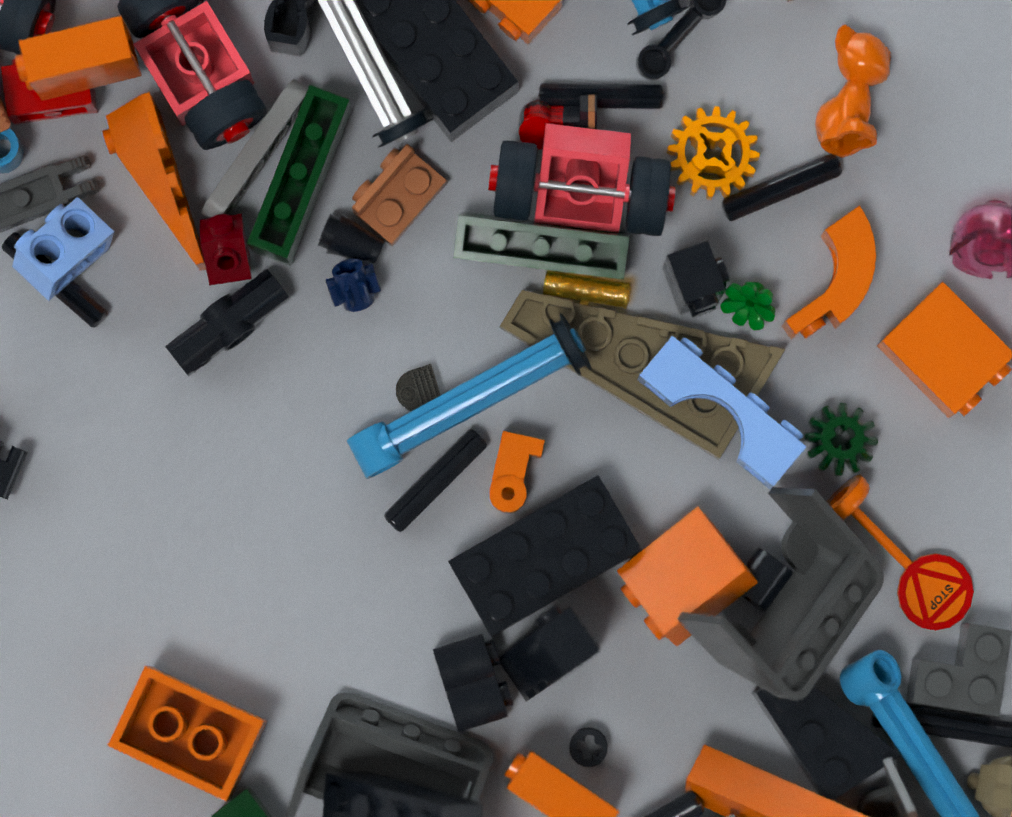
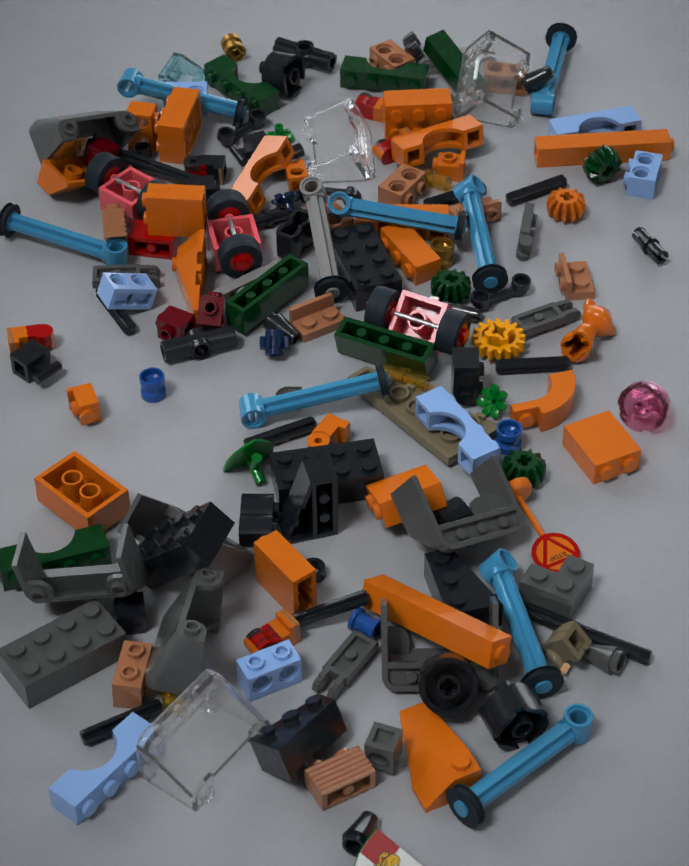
camera: 20 degrees right, 40 degrees down
(102, 526) = (84, 403): none -> orange brick
(171, 294) = (174, 323): none -> dark red brick
(187, 440) = (152, 385): none -> blue wheel
(416, 564) = (251, 455): none -> green shield
(599, 34) = (451, 286): none -> dark green gear
(769, 72) = (546, 317): none -> dark grey hinge
(801, 370) = (509, 435): none -> blue wheel

